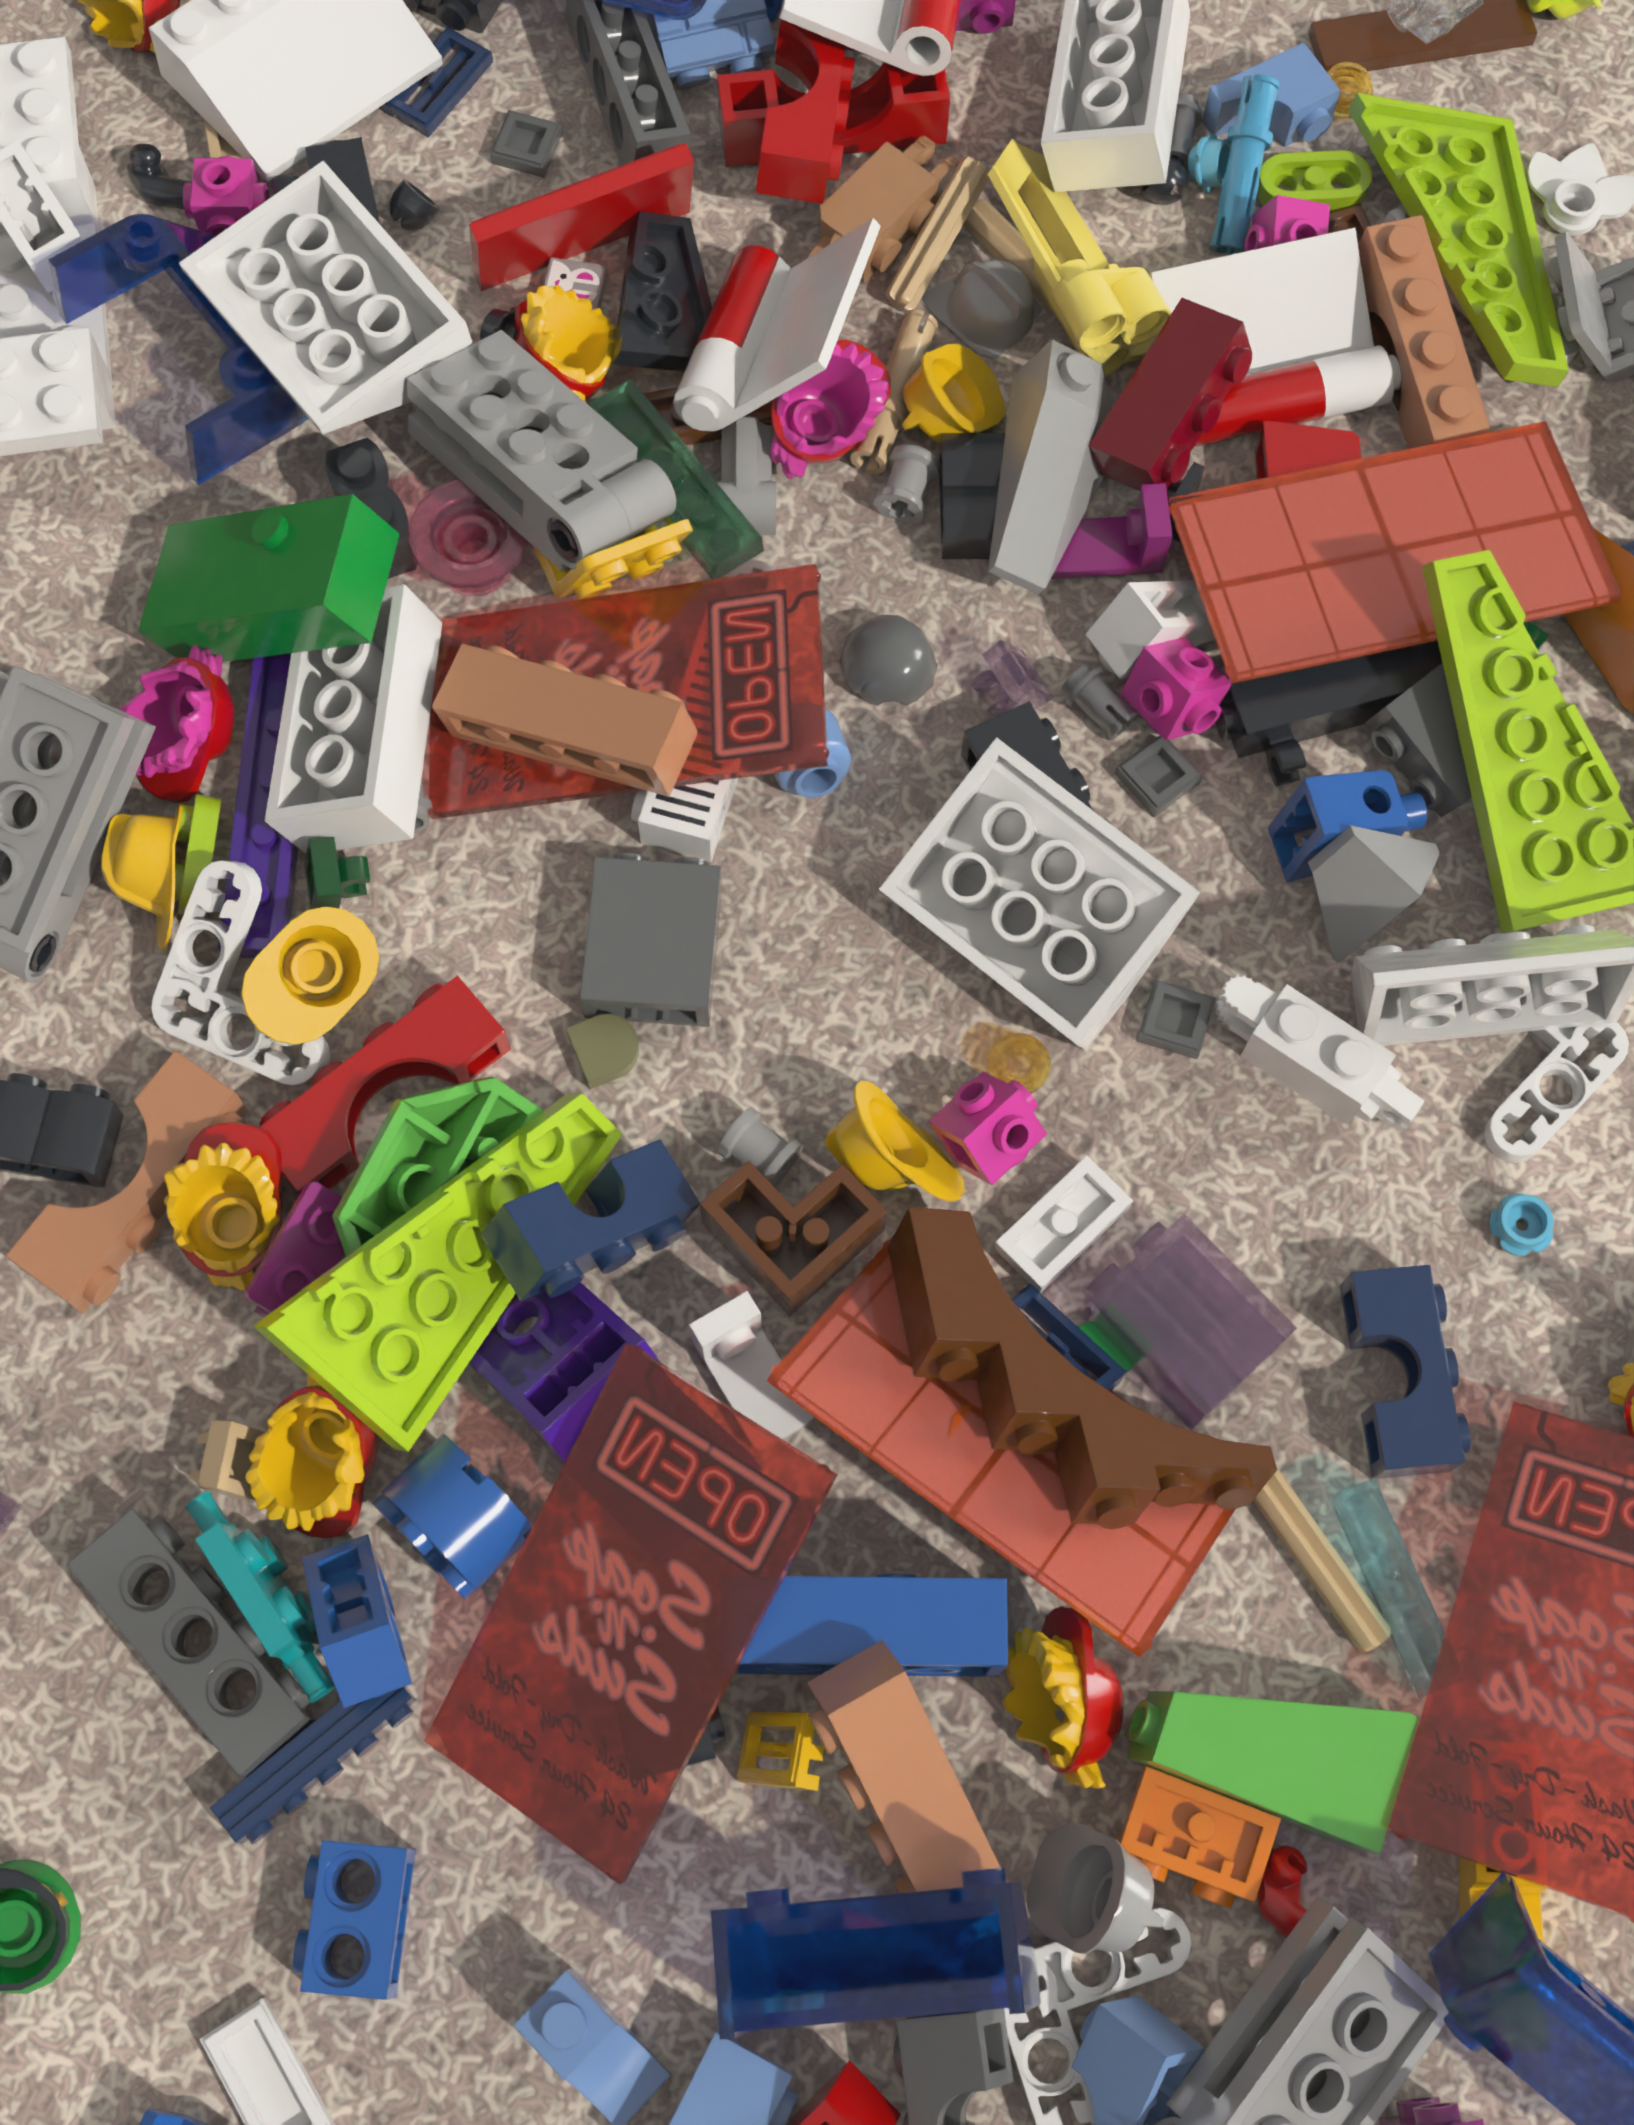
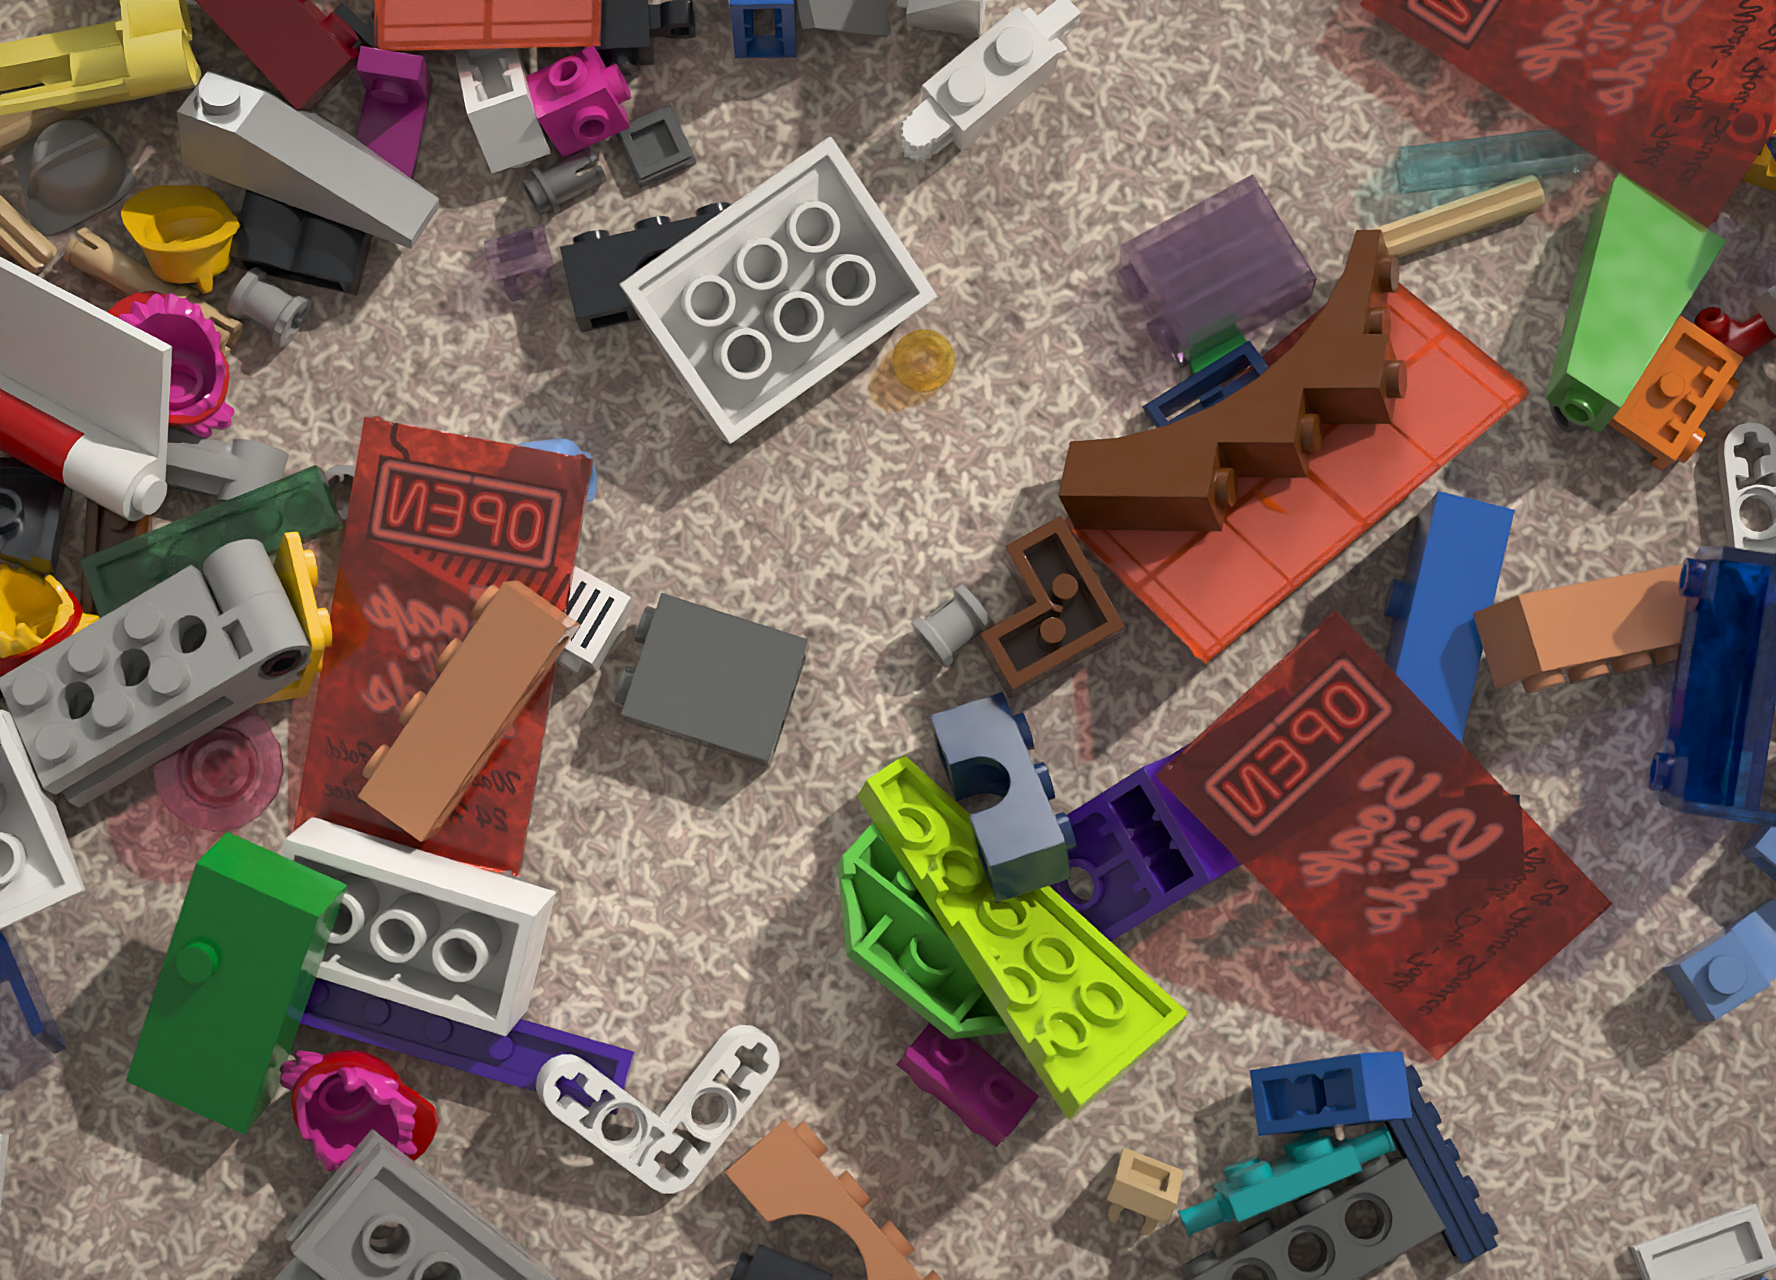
camera: 75 degrees left, 10 degrees up
(141, 865) = (515, 1169): yellow piece -> none
(199, 830) = (483, 1111): lime plate -> none
(226, 1201) = (892, 1145): yellow hair -> none
(310, 975) = (676, 1023): yellow piece -> none
(312, 1464) = (1169, 1112): yellow hair -> none
(331, 878) = (566, 990): dark green tile -> none
(363, 471) = (137, 870): black brick -> none
(375, 1922) = (1589, 1135): blue brick -> none
(442, 1038) = (766, 904): red arch -> none
(454, 1516) = (1252, 985): blue brick -> none
(604, 1047) = (809, 753): olive tile -> none
(741, 1362) = (1169, 687): white bracket -> none
(798, 1752) = (1540, 710): yellow tile -> none
(888, 660) = (463, 377): dark grey hair -> none
(889, 1149) = (987, 499): yellow piece -> none
(989, 1126) = (987, 402): dark pink brick -> none
(1057, 1672) = (1509, 464): yellow hair -> none
(1063, 1224) = (1094, 360): white plate -> none
(1090, 1892) = (1704, 496): light grey piece -> none
(1176, 1019) = (914, 200): dark grey tile -> none
(1404, 1315) = (1359, 90): dark blue arch -> none

